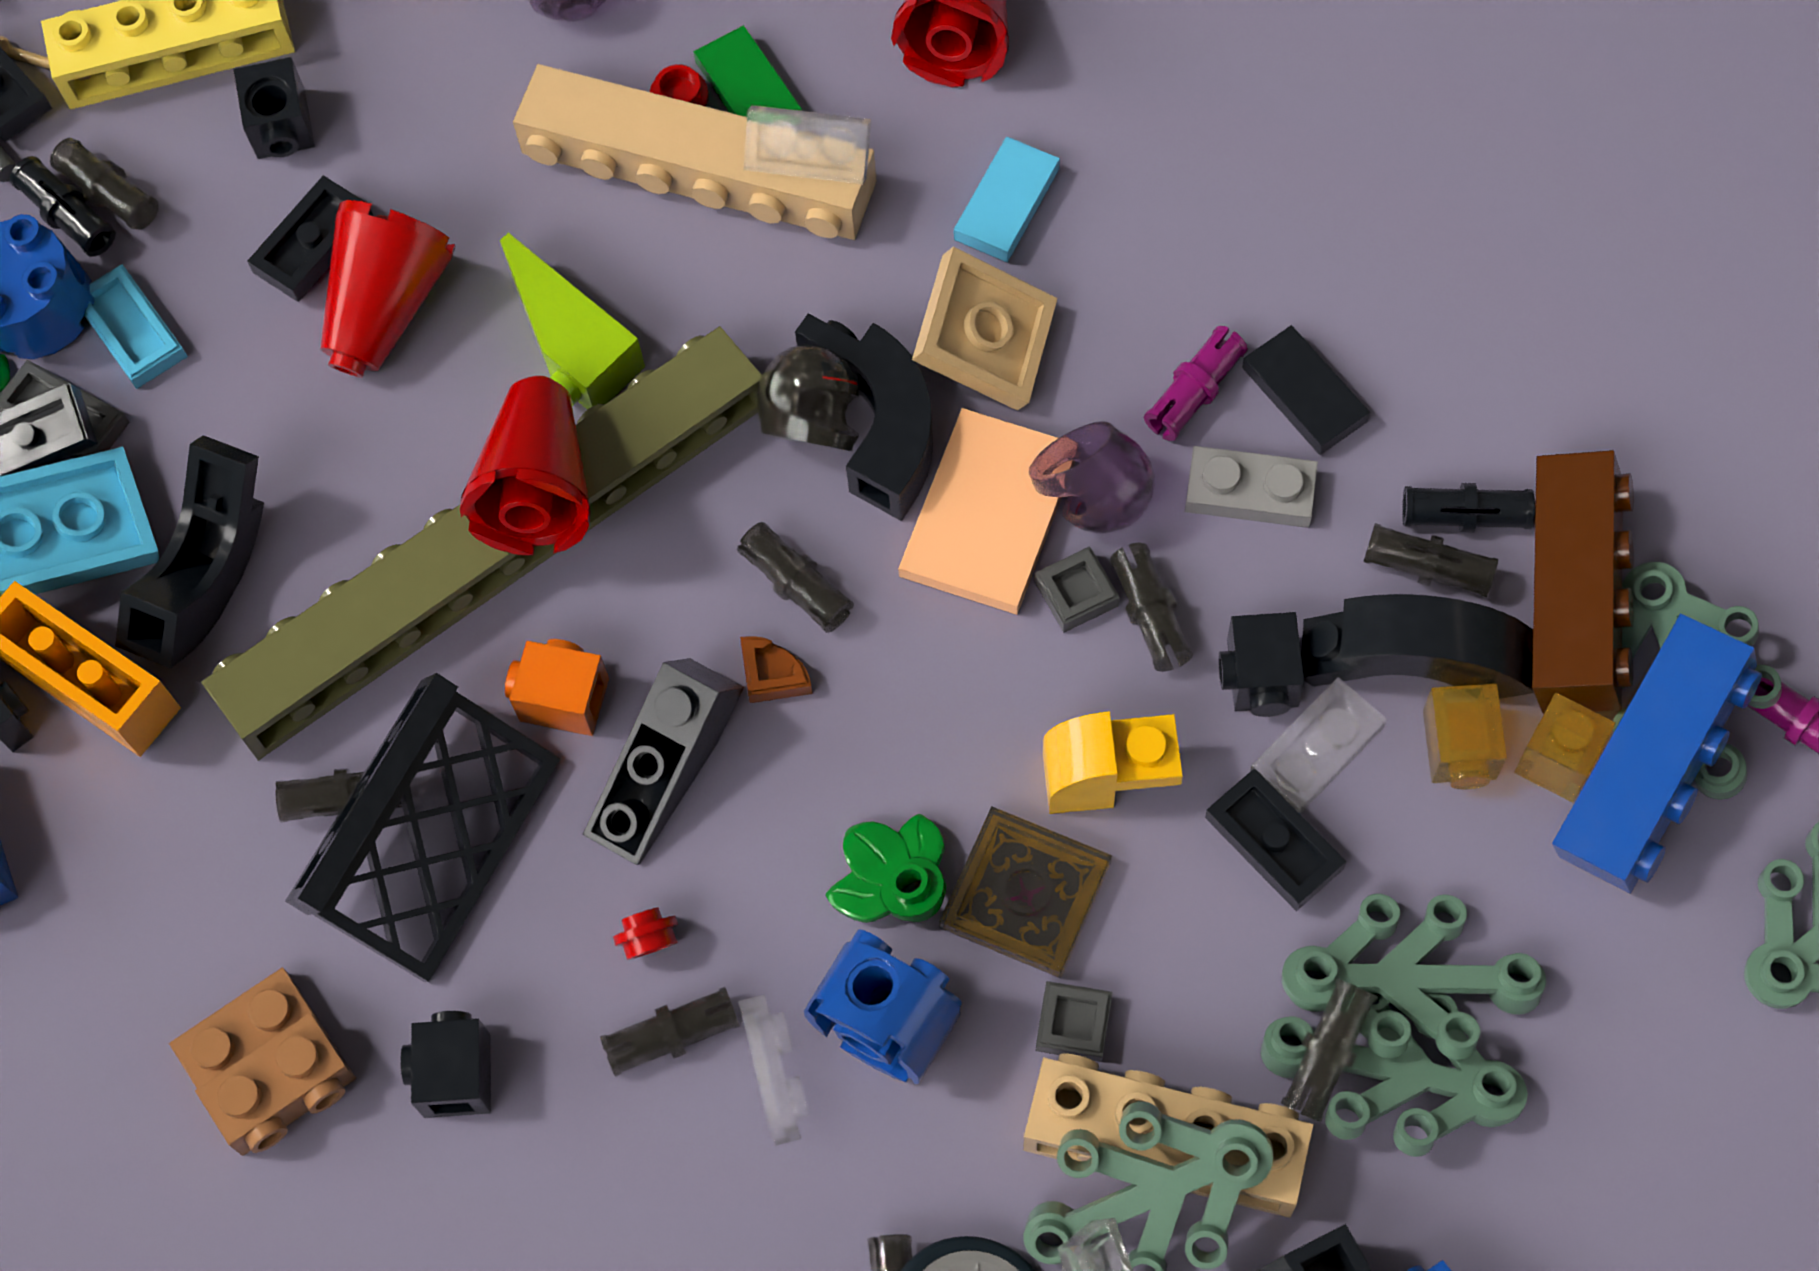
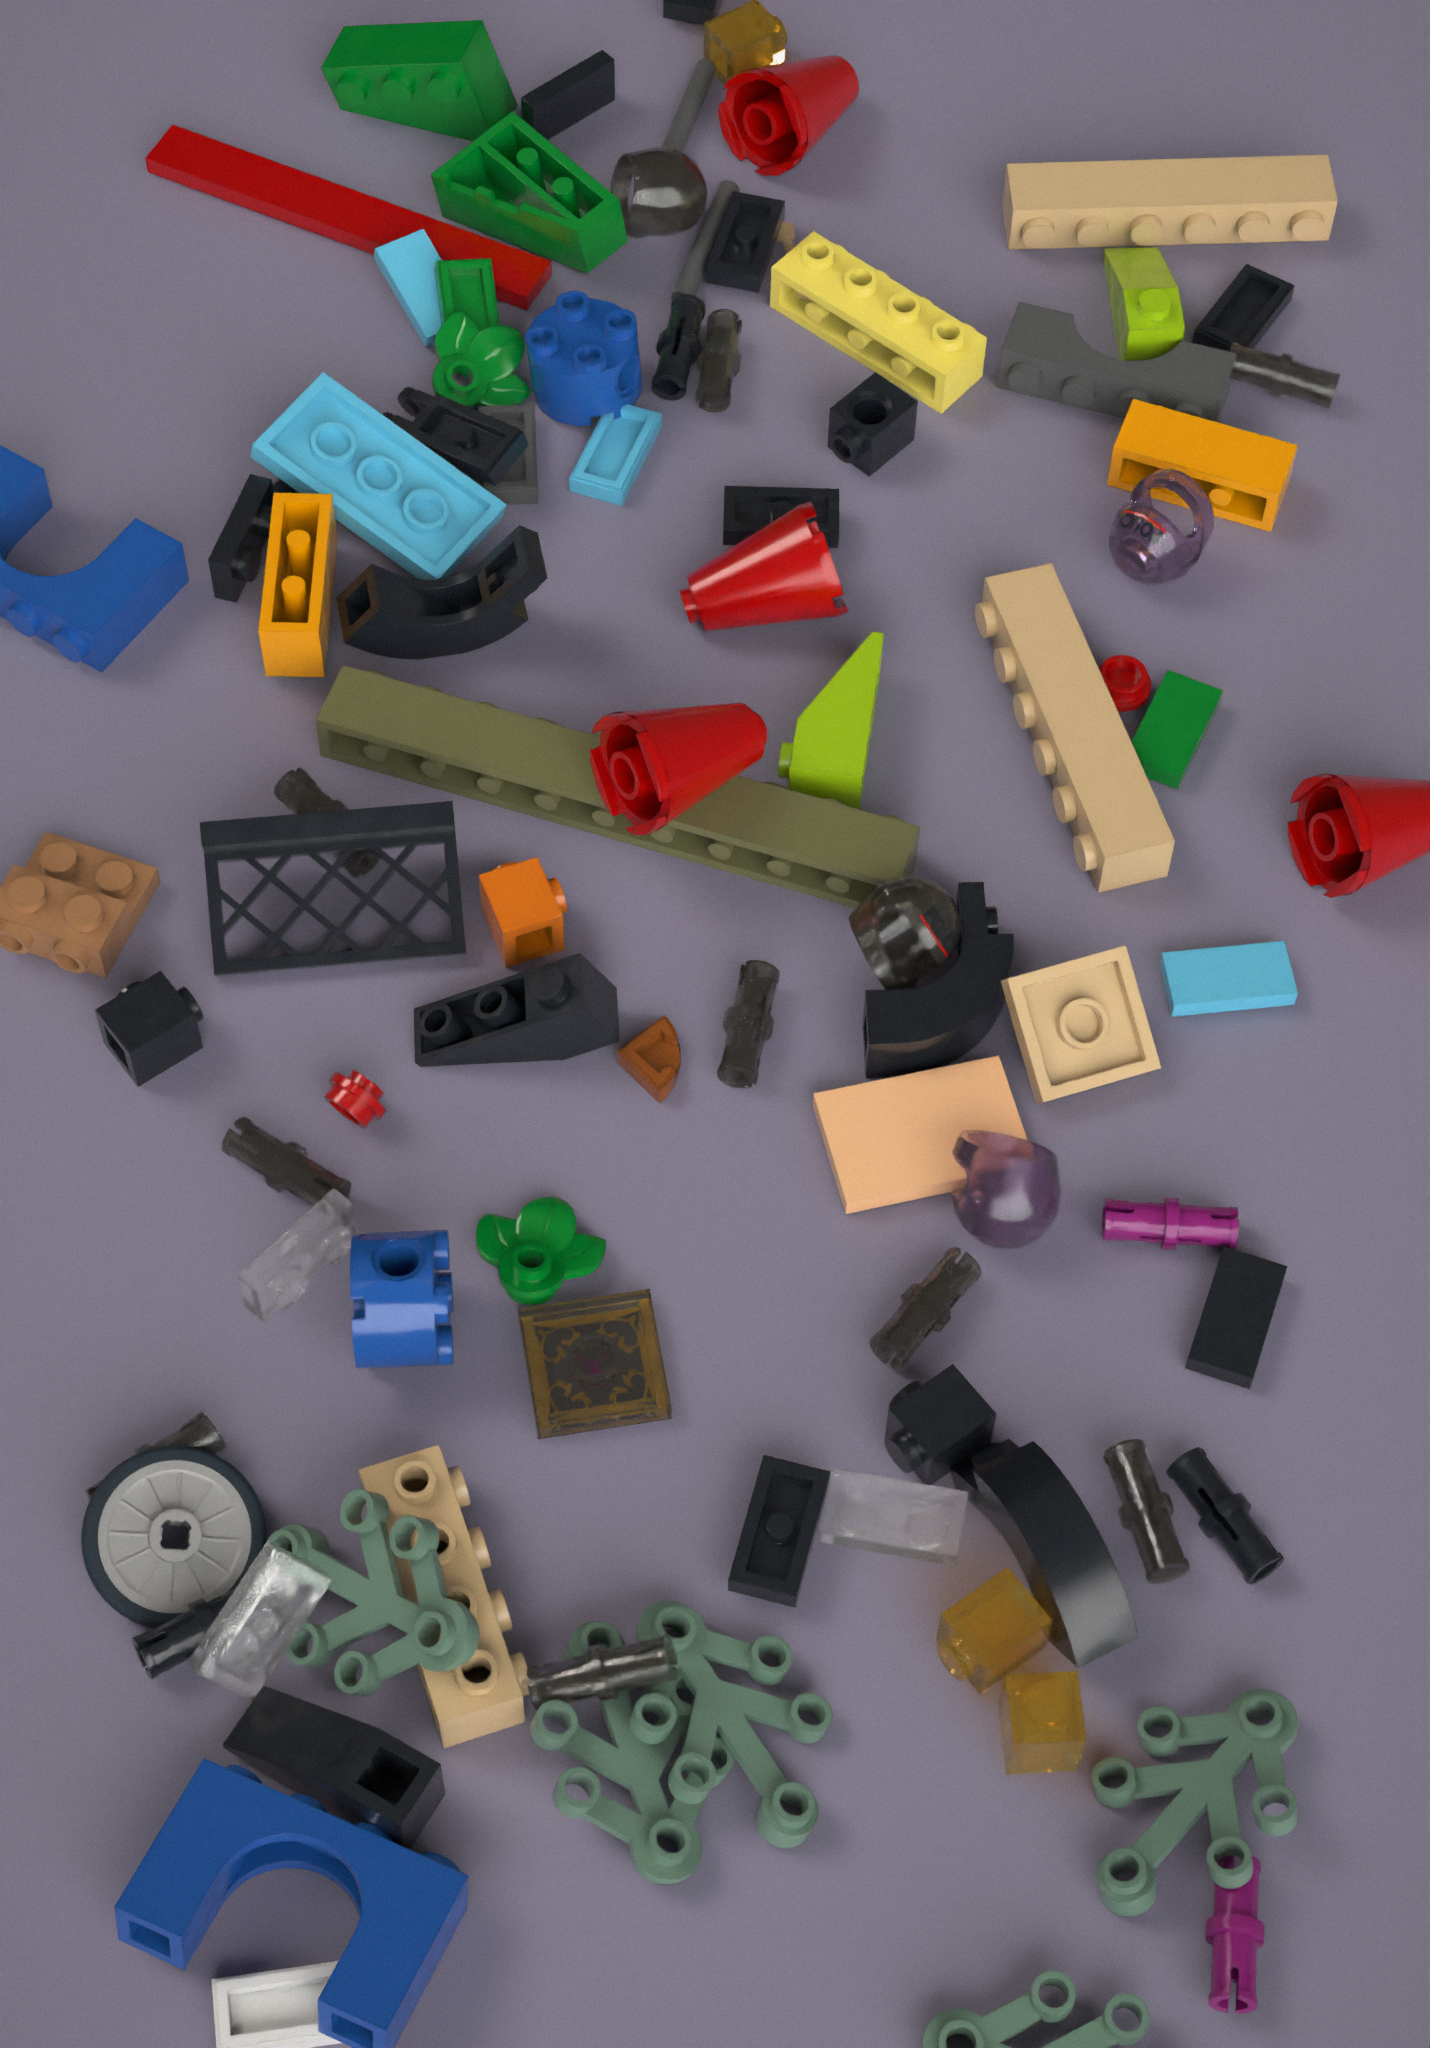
camera: 50 degrees right, 10 degrees down
(807, 144) = (1129, 783): clear plate -> none
(1073, 1021) = (502, 1468): dark grey tile -> none
(1076, 589) = (901, 1243): dark grey tile -> none
(1097, 756) = (747, 1344): yellow brick -> none
(1251, 486) = (1107, 1326): light grey plate -> none
(1580, 580) = (1215, 1642): reddish brown brick -> none
(1657, 753) = (1084, 1797): blue brick -> none

